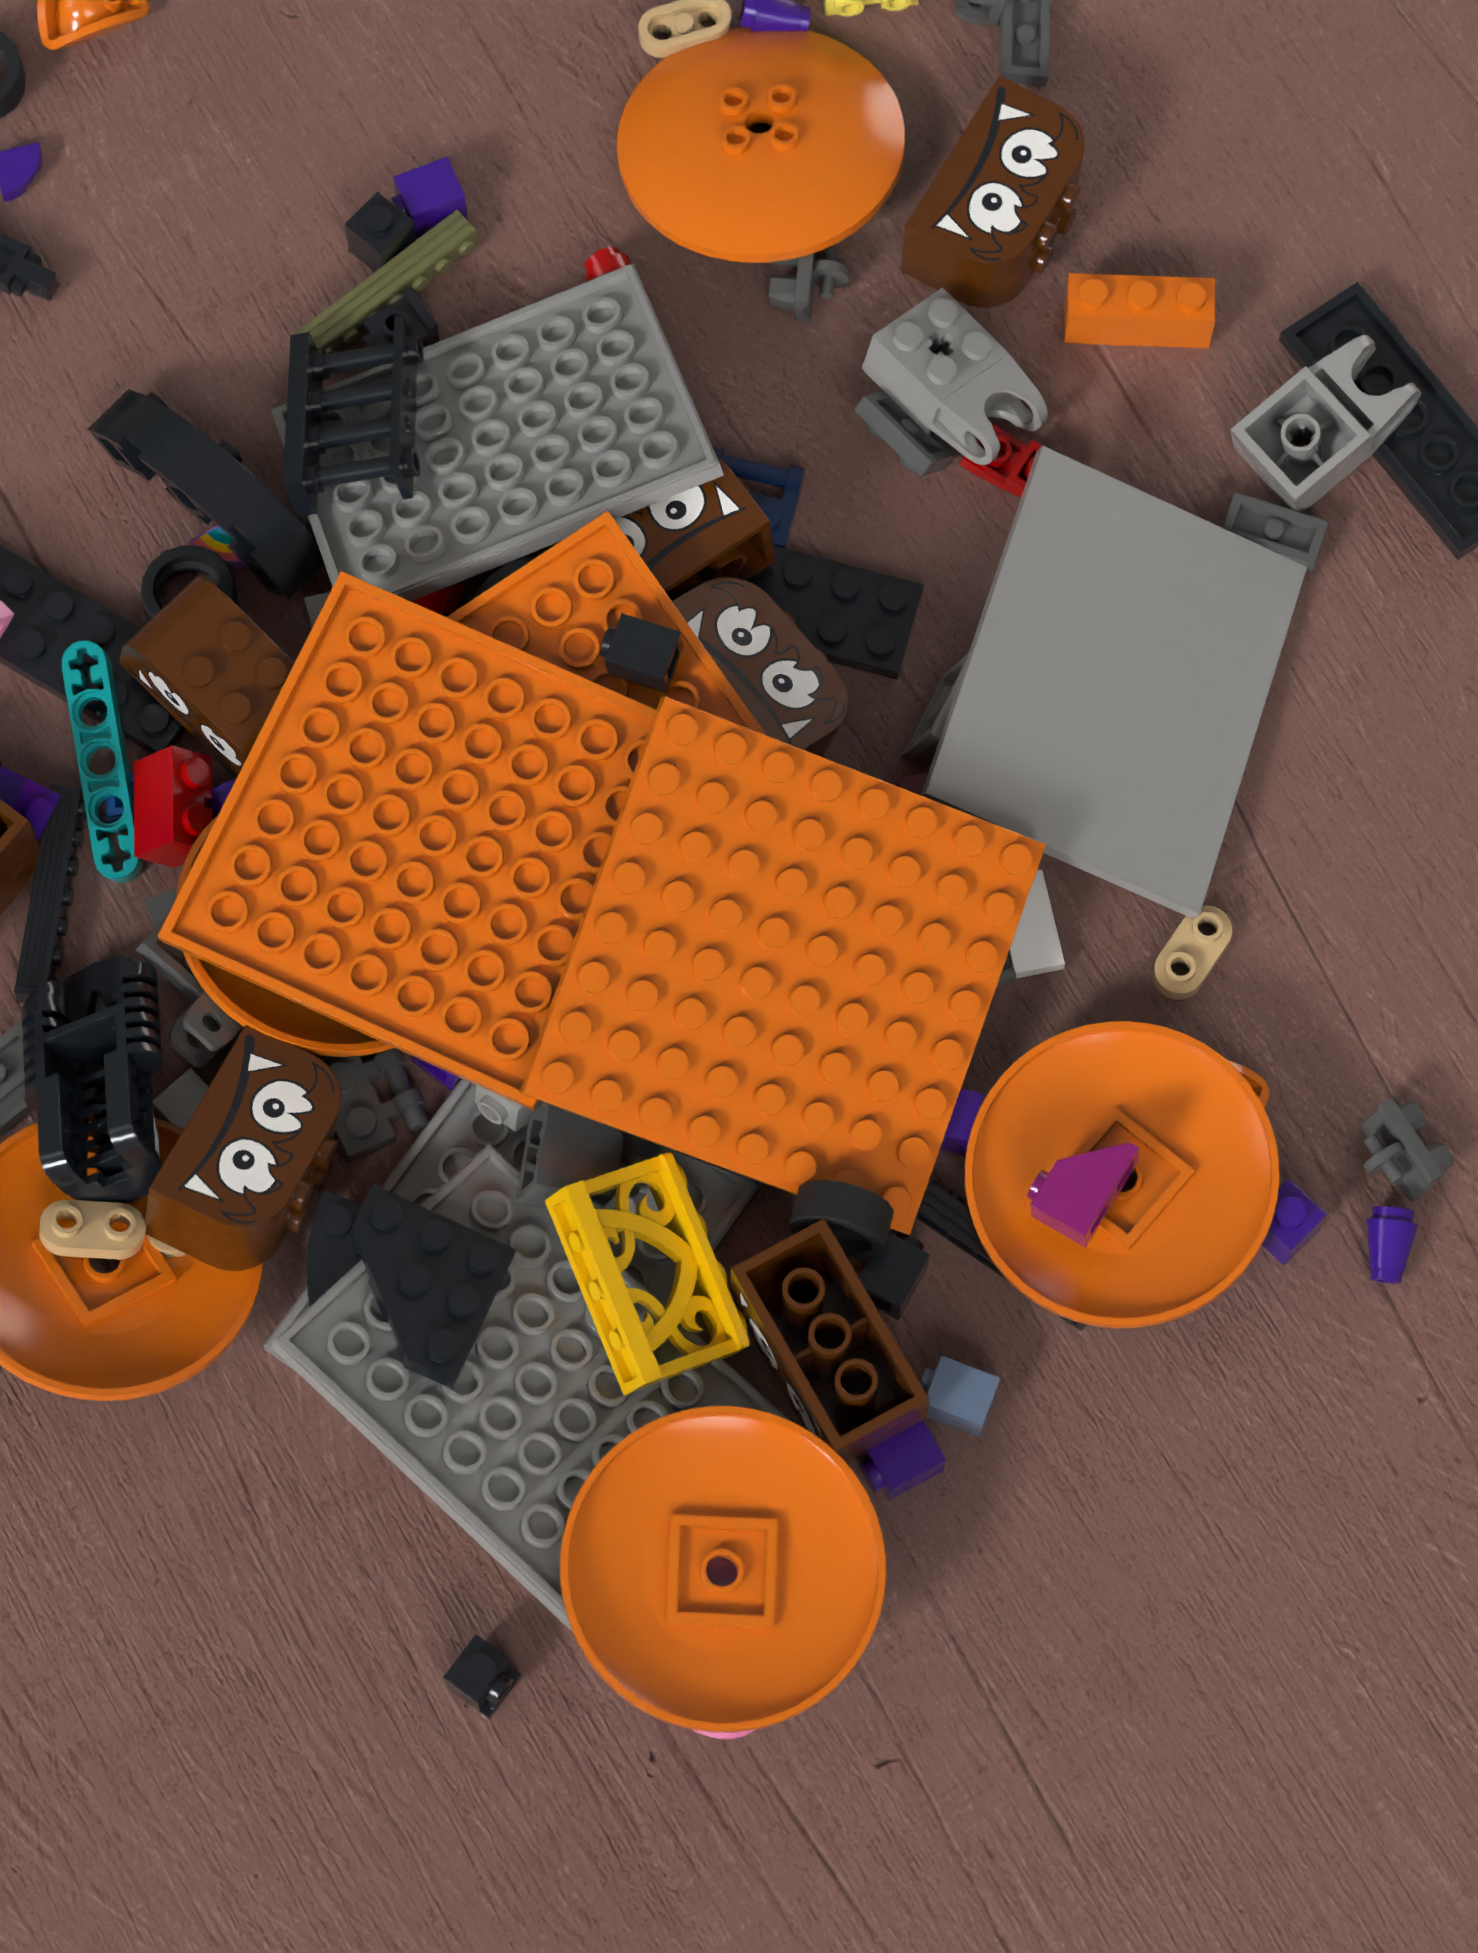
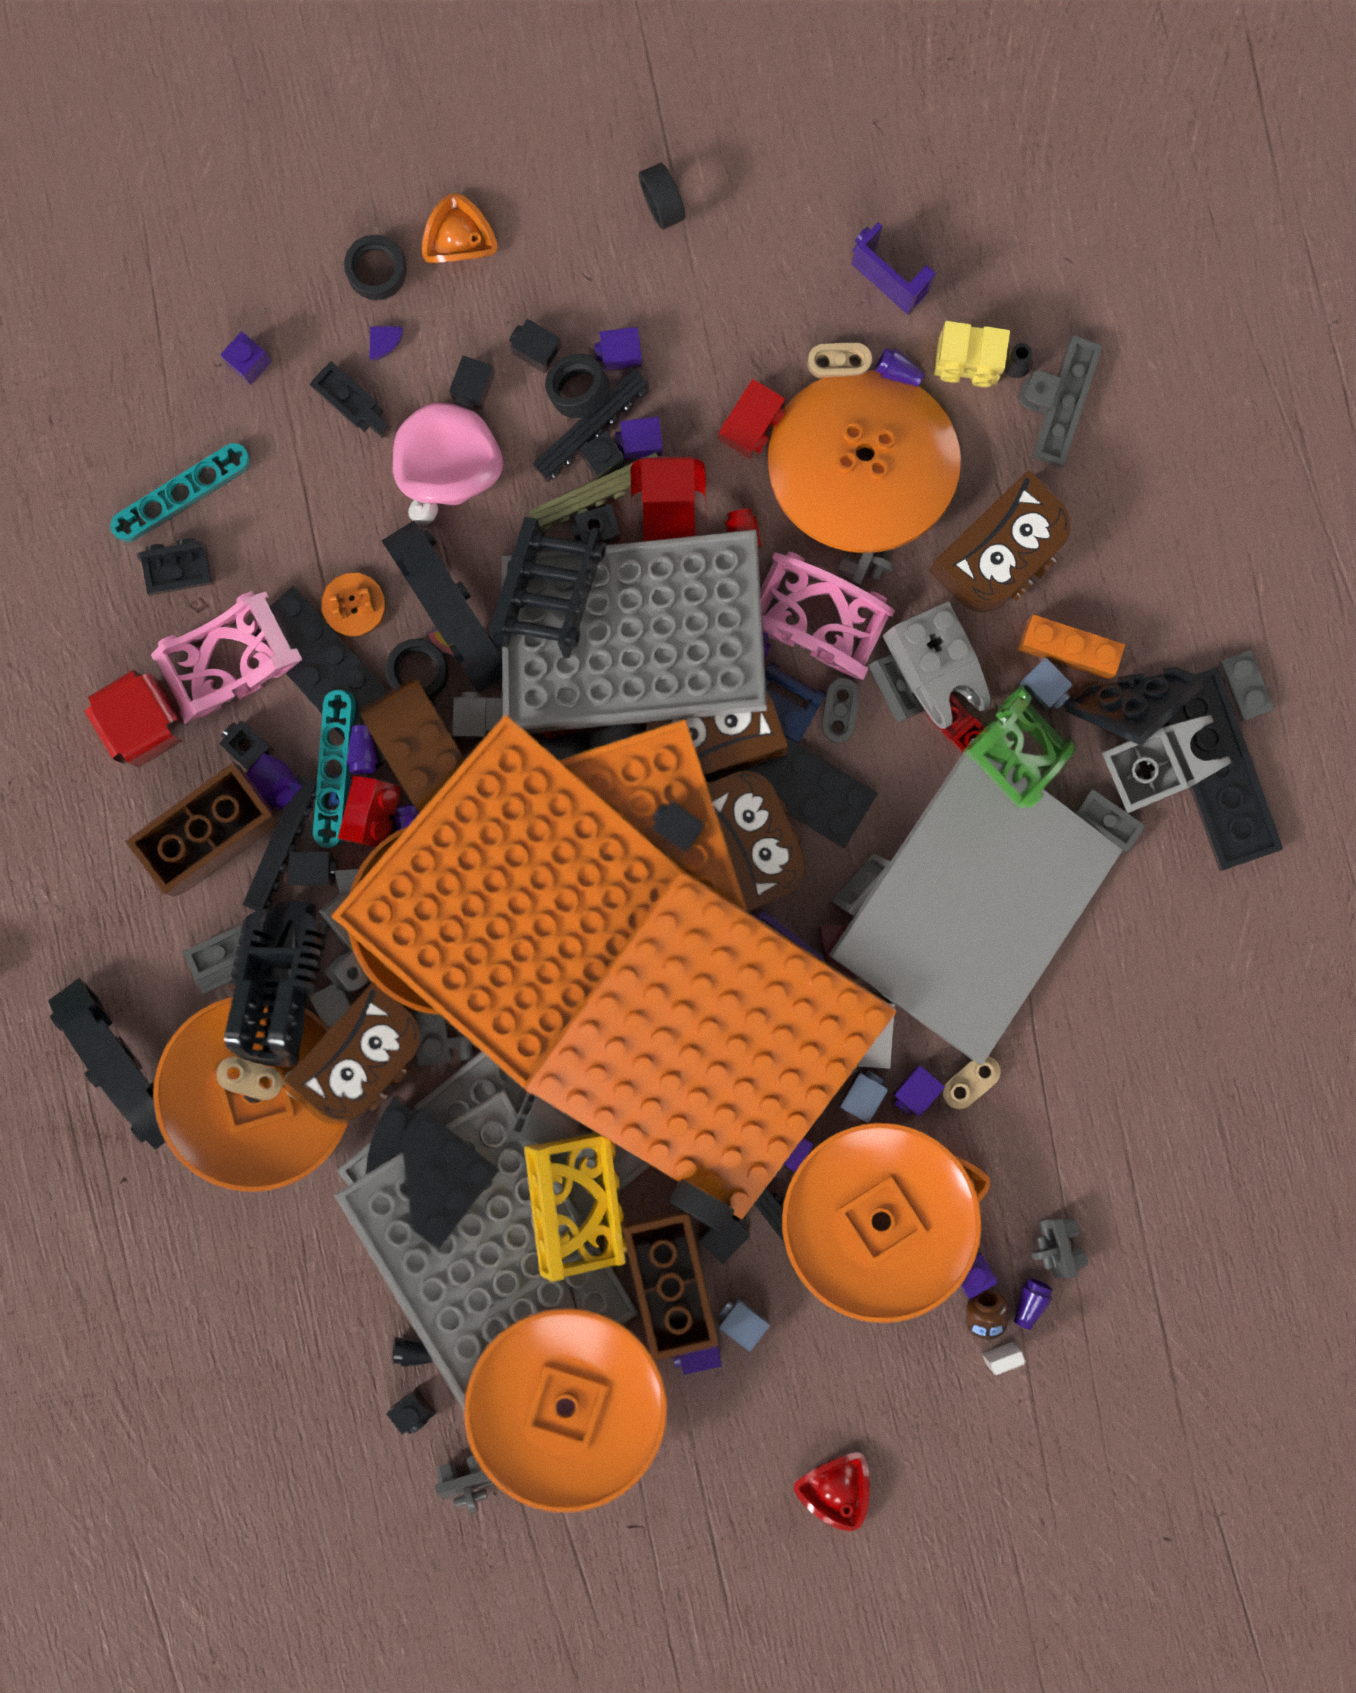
camera: 15 degrees right, 15 degrees up
(89, 521) = (368, 600): none -> orange plate
(107, 914) = (312, 868): none -> black brick
(138, 372) = (422, 512): none -> white piece
(138, 721) = (361, 751): none -> dark purple cone
(149, 290) = (445, 455): none -> bright pink piece
(161, 188) = (471, 383): none -> black brick
(240, 116) = (535, 345): none -> black brick
(285, 624) = (469, 716): none -> light grey brick
(301, 130) = (563, 371): none -> black tyre
(363, 89) = (619, 349): none -> dark purple brick
(370, 173) = (591, 426): none -> black piece
(461, 1583) = (410, 1351): none -> black cone
(487, 246) = (667, 494): none -> red piece
(582, 132) = (751, 419): none -> red piece
(603, 1764) = (451, 1484): none -> dark grey hips
(796, 408) = (834, 655): none -> bright pink fence
(832, 489) = (840, 711): none -> dark grey plate
(1036, 1009) = (864, 1095): none -> sand blue brick
(1081, 1190) = (851, 1232): magenta slope -> none
(1116, 982) = (917, 1091): none -> dark purple brick
(1119, 444) = (1013, 715): none -> bright green fence
(1120, 371) = (1047, 685): none -> sand blue brick
(1184, 1607) = (837, 1491): none -> red hat
(1254, 354) = (1136, 703): none -> black plate
(1326, 1274) = (987, 1315): none -> reddish brown head
(1372, 1325) = (1003, 1358): none -> white tile
(1409, 301) = (1246, 685): none -> dark grey plate

